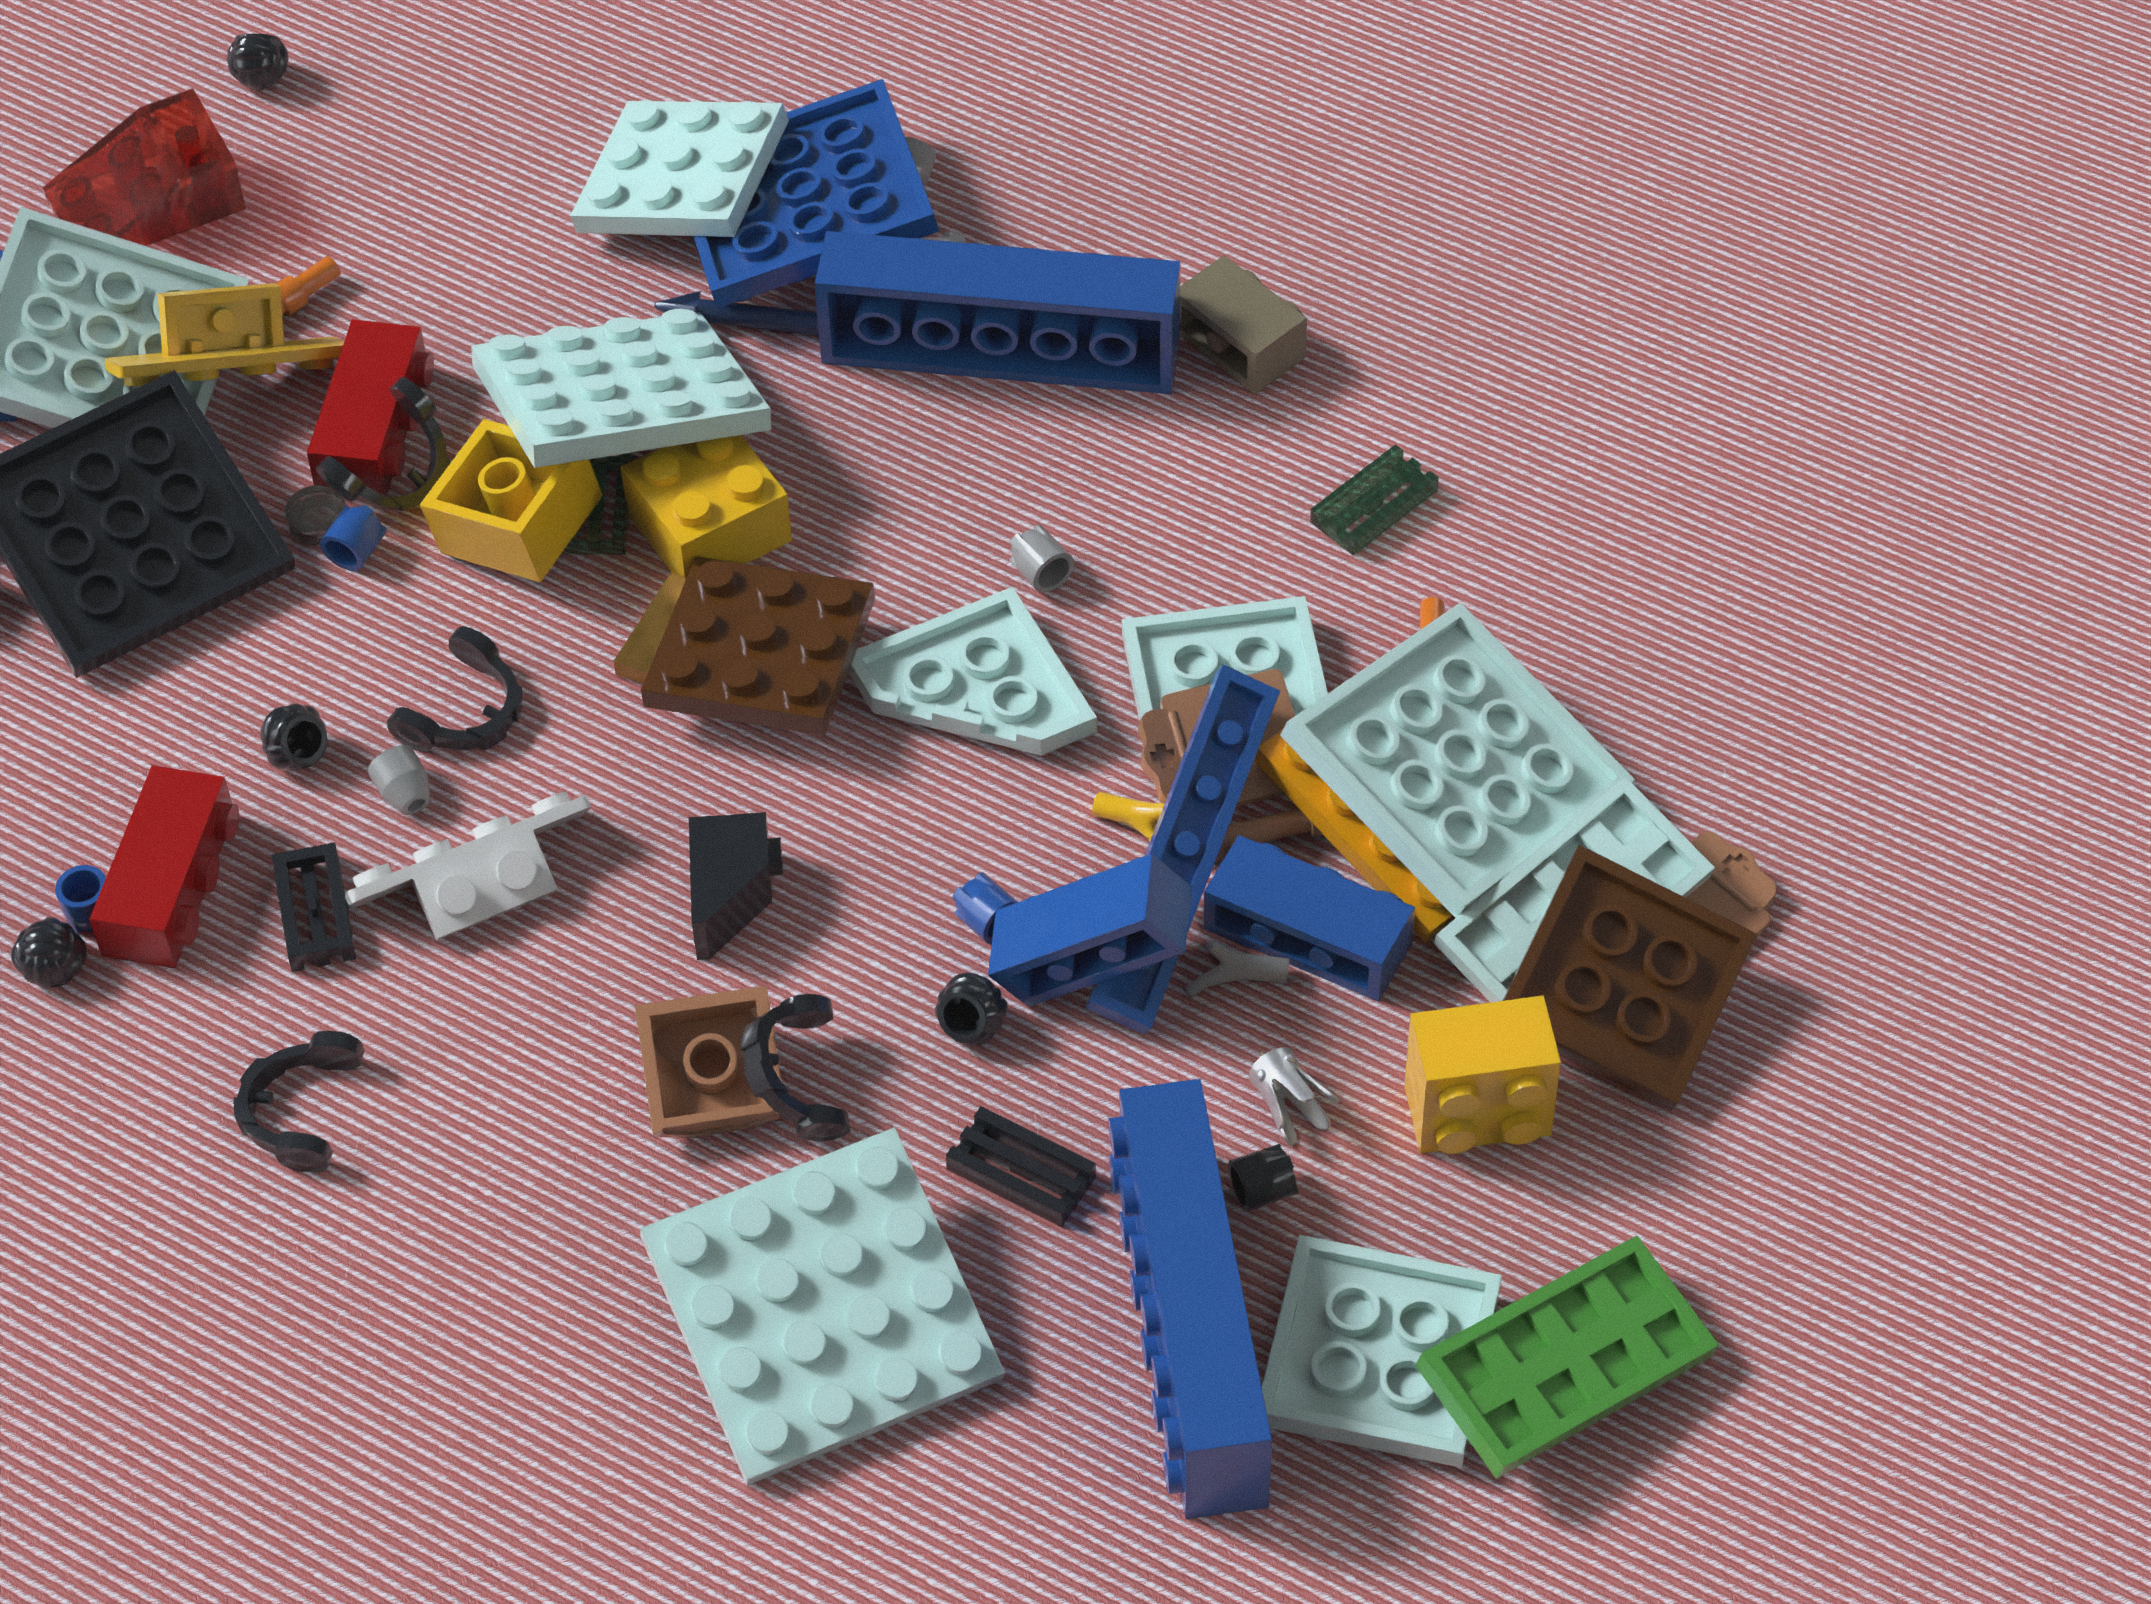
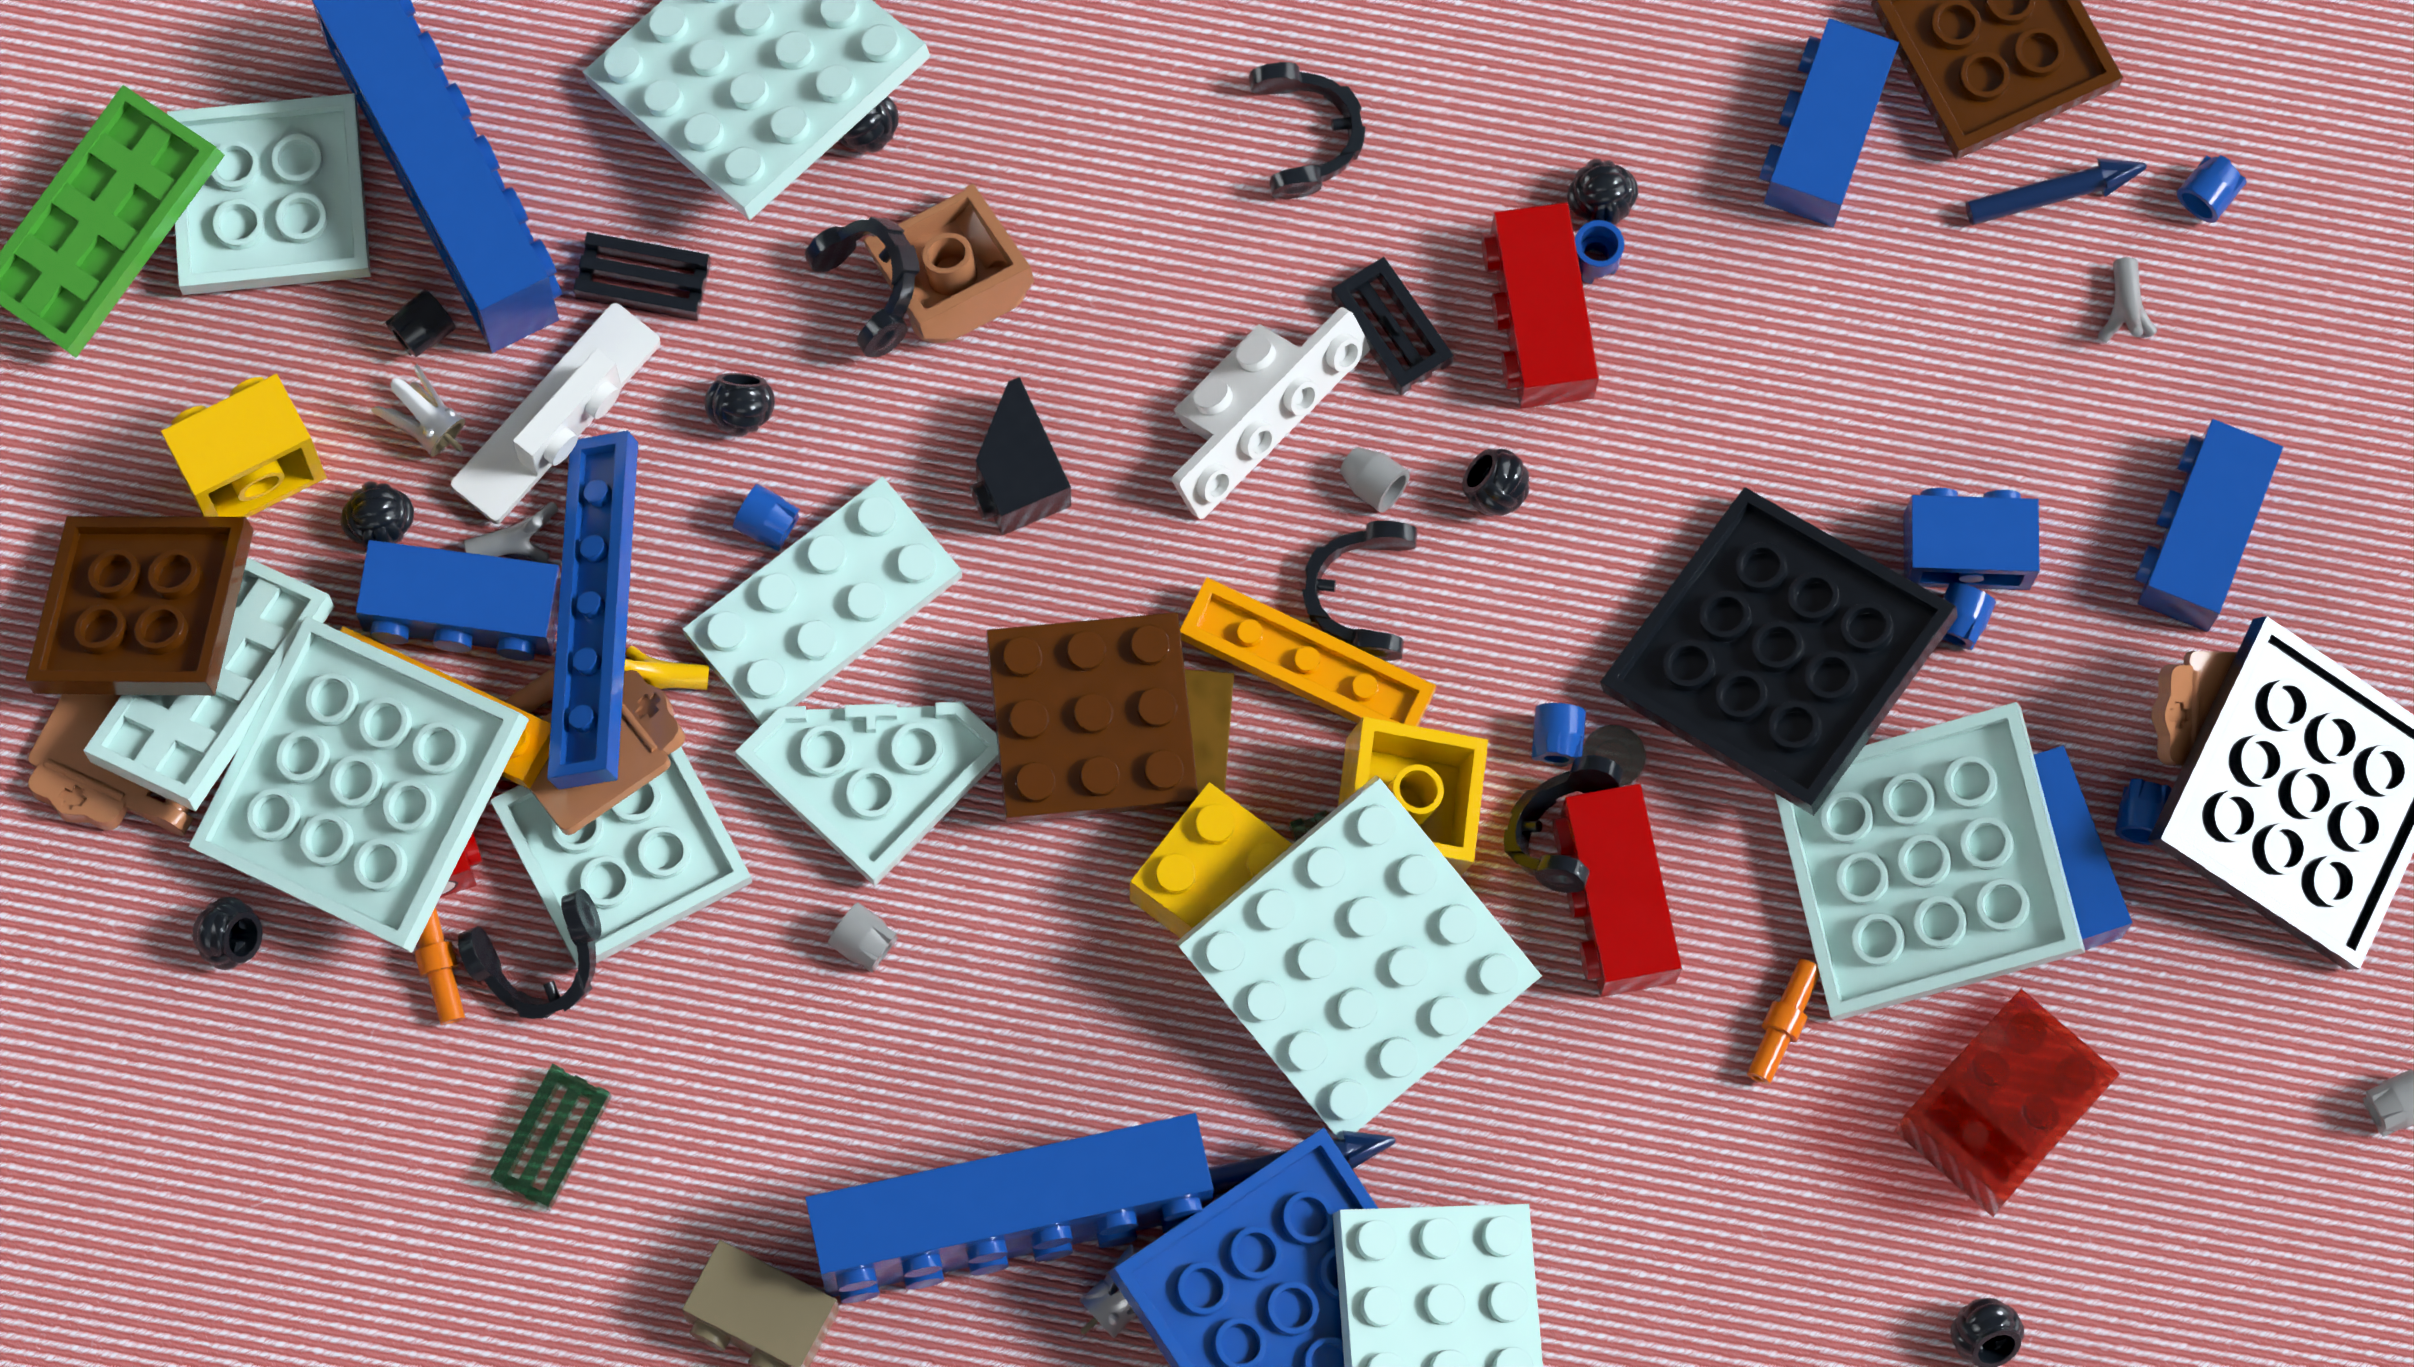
camera: 155 degrees right, 20 degrees up
(223, 331) = (1794, 892): yellow bracket -> none
(545, 652) = (1302, 658): none -> light orange plate
(941, 833) = (822, 602): none -> light aqua plate
(1090, 930) = (644, 471): blue brick -> none
(1153, 1040) = (556, 413): none -> white bracket
(1289, 602) = (484, 964): none -> black piece
(1365, 1019) = (377, 514): none -> black piece
(1620, 714) = (227, 933): none -> black piece

